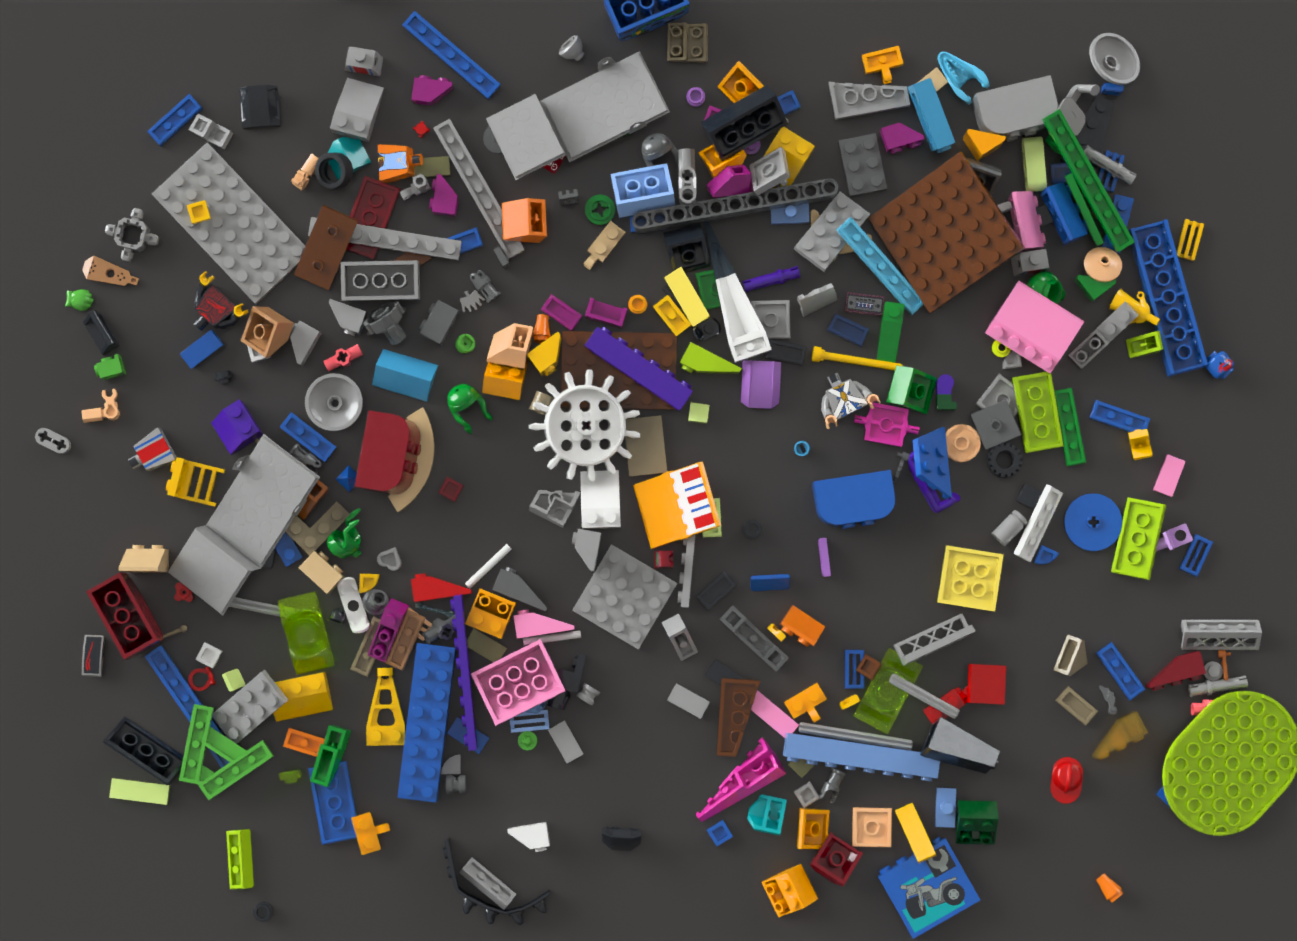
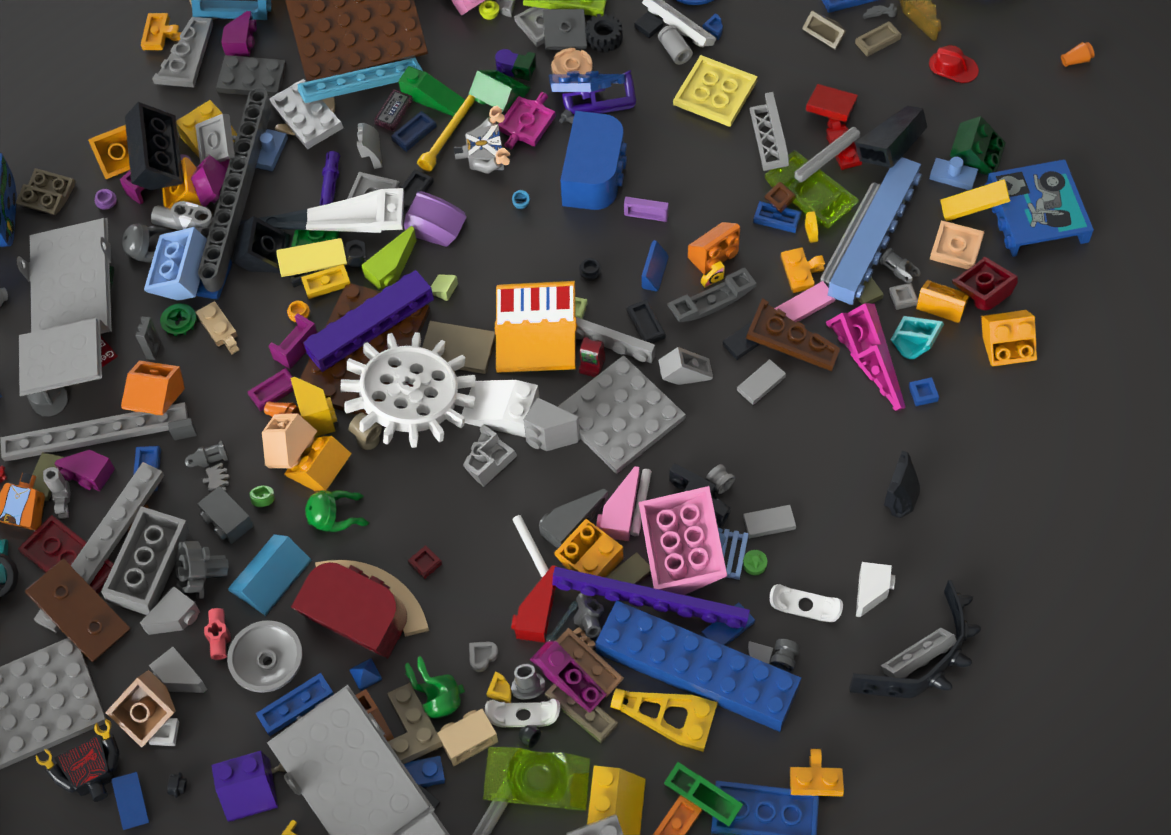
camera: 70 degrees left, 25 degrees down
(504, 802) = (787, 599): none -> white piece

